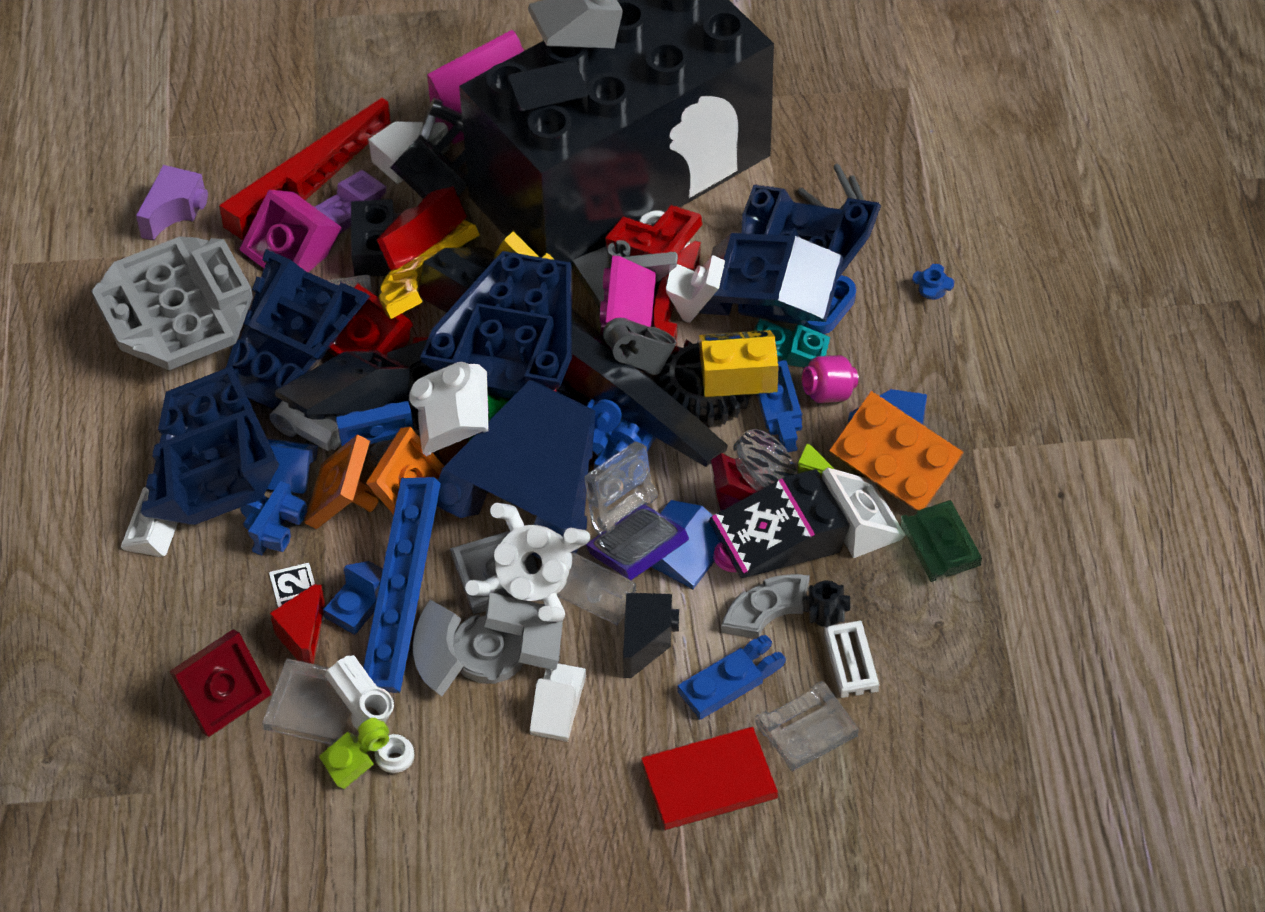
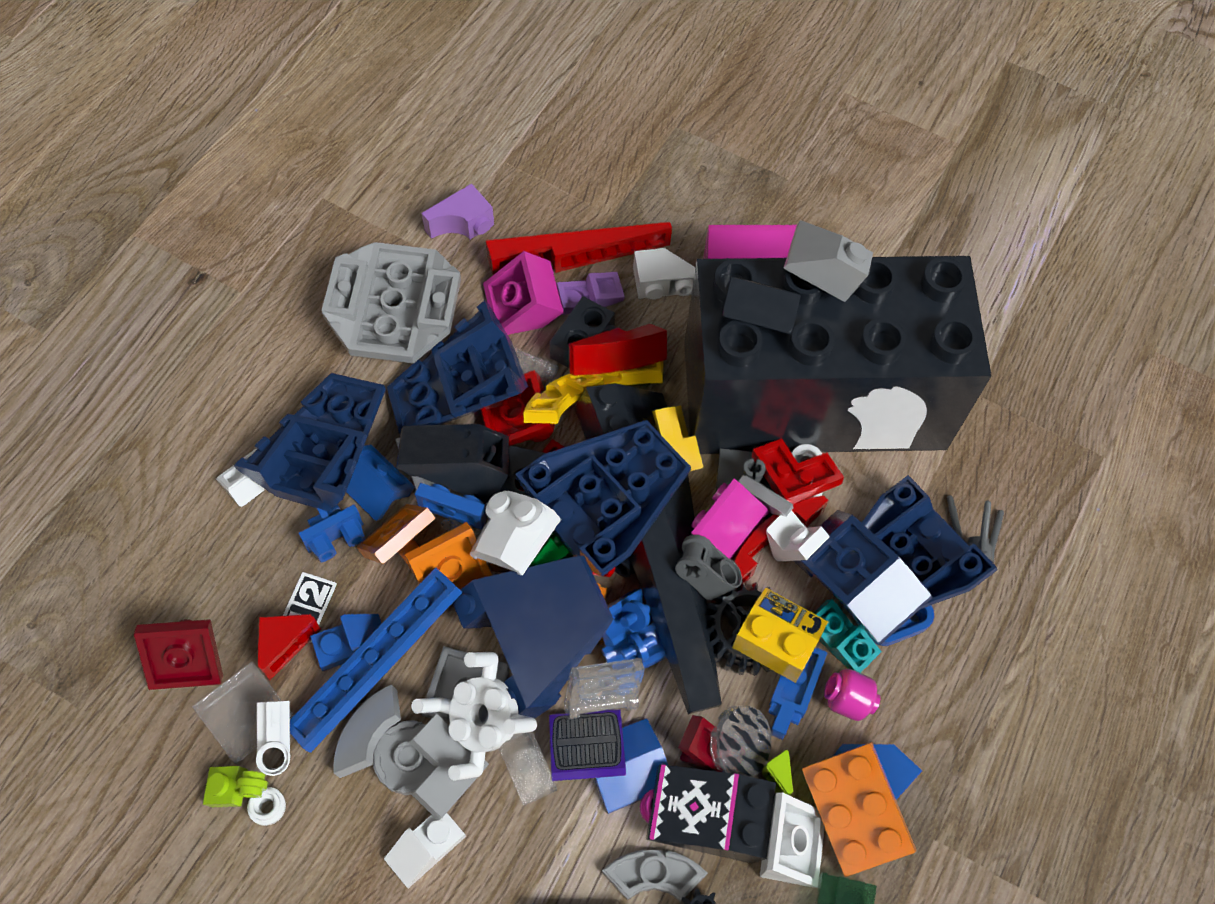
camera: 30 degrees right, 10 degrees up
(424, 164) = (661, 298): black plate -> none
(647, 629) = (537, 833): black slope -> none
(933, 289) = (997, 662): blue plate -> none

